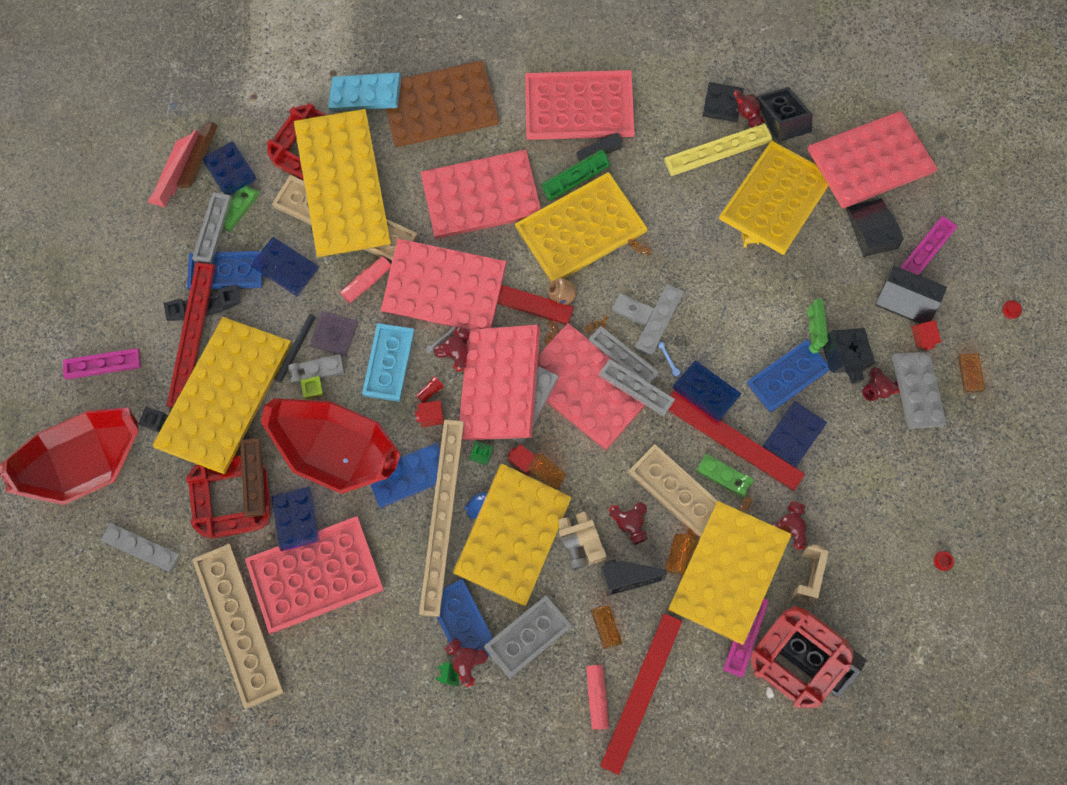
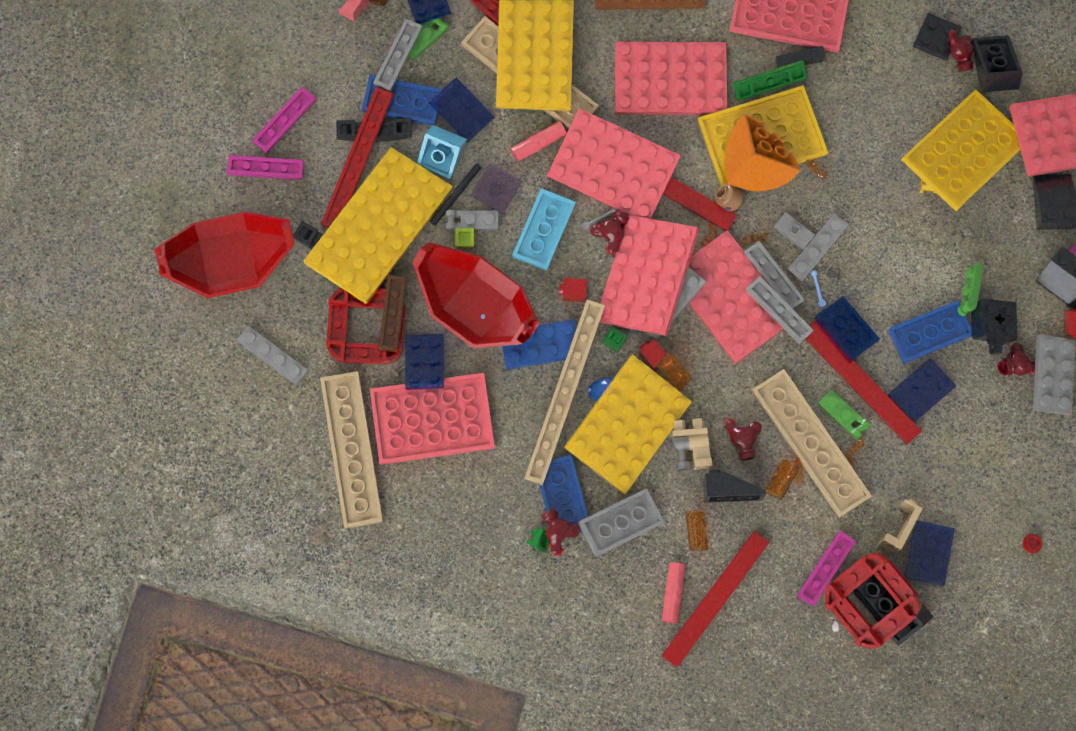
camera: 10 degrees right, 5 degrees up
(112, 314) = (284, 120): none -> dark pink plate
(272, 310) = (441, 151): none -> medium azure slope
(432, 387) = (581, 264): red pin -> none
(580, 247) = (757, 158): none -> orange brick
(718, 149) = (919, 86): light yellow plate -> none
(730, 572) = (825, 506): yellow plate -> none
(794, 524) = (896, 477): dark red animal -> none
(845, 595) = (929, 553): none -> clear blue plate

